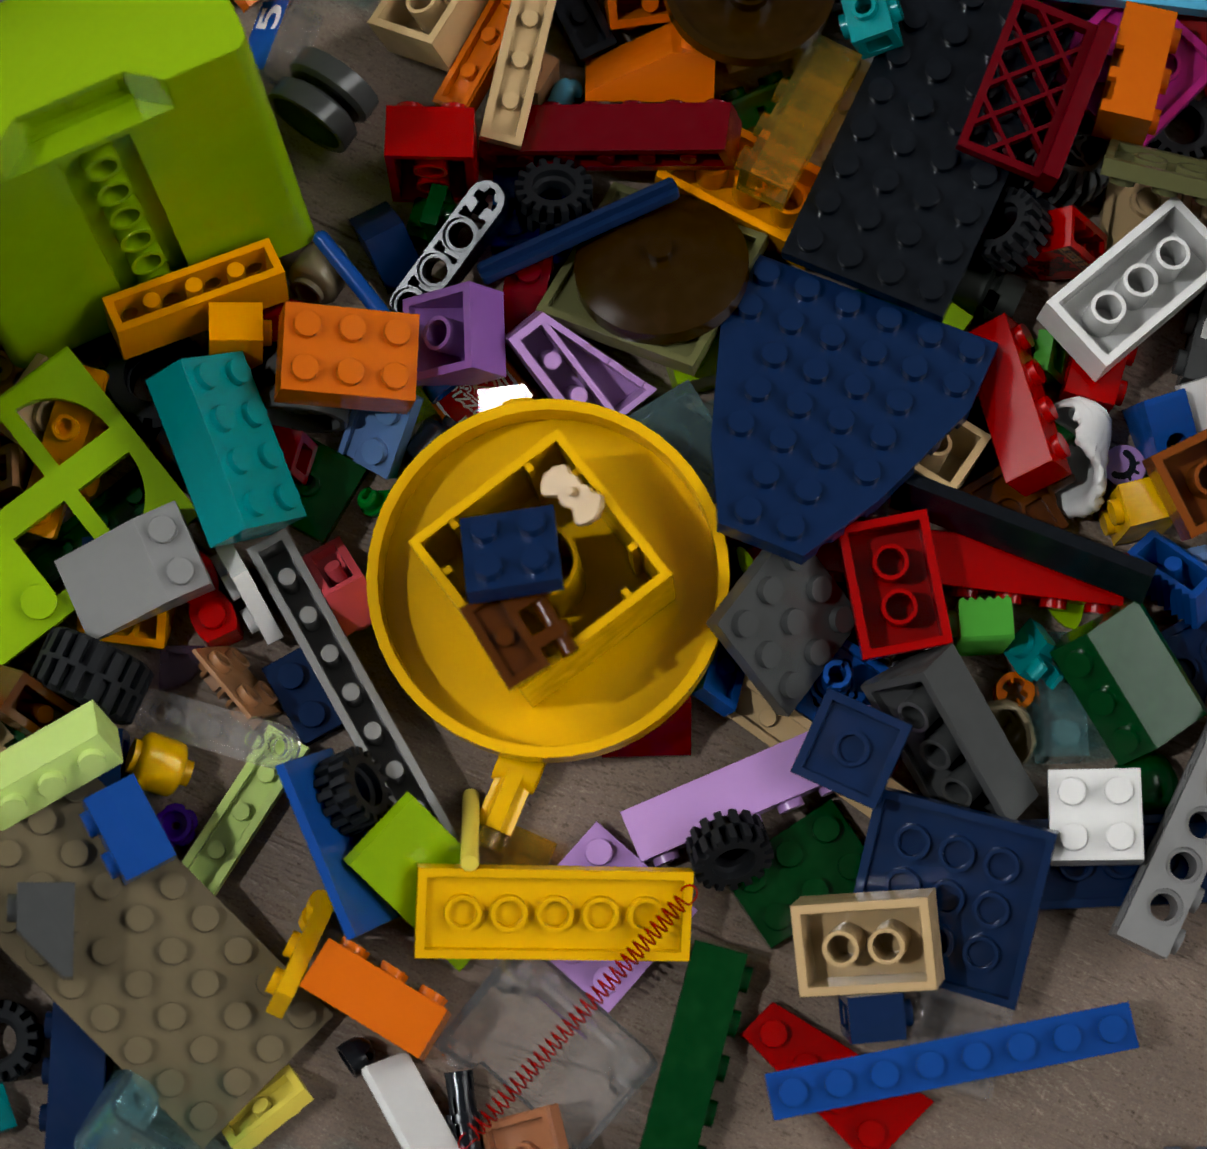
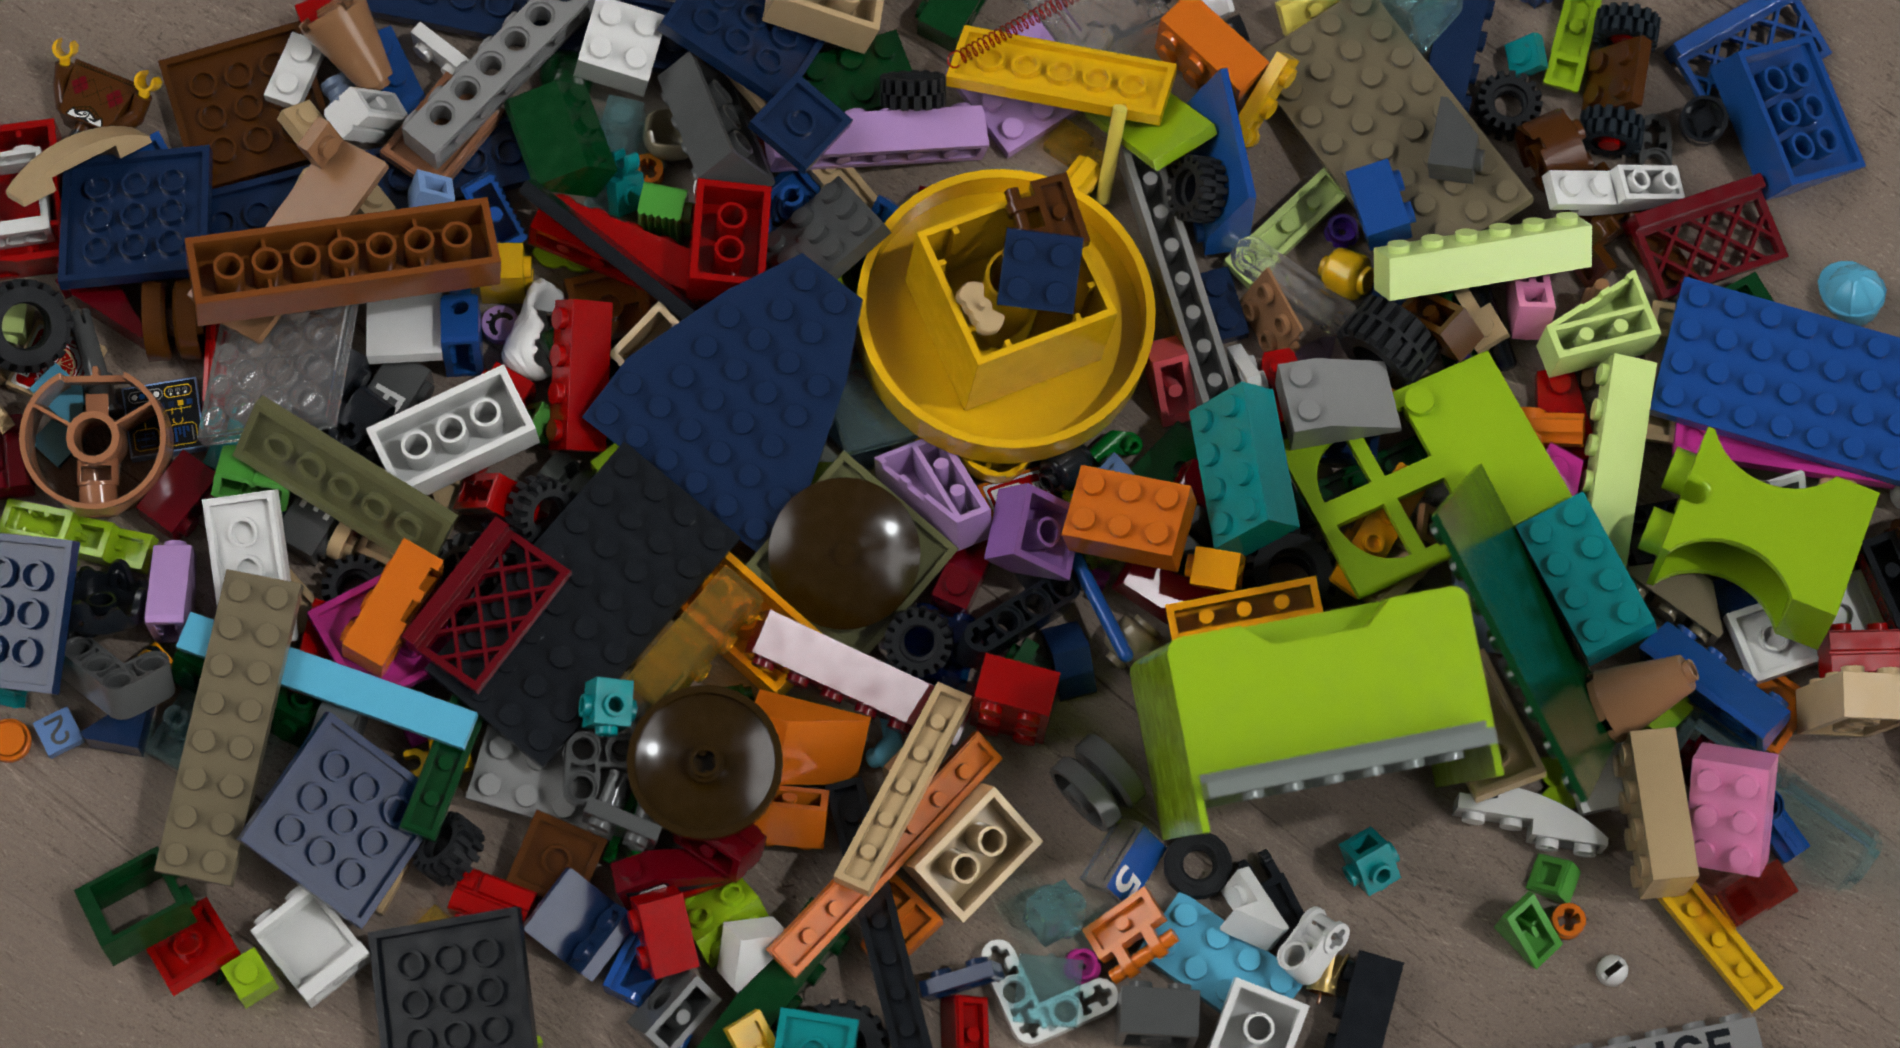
camera: 170 degrees left, 5 degrees down
(578, 230) = (907, 596): dark blue axle -> none

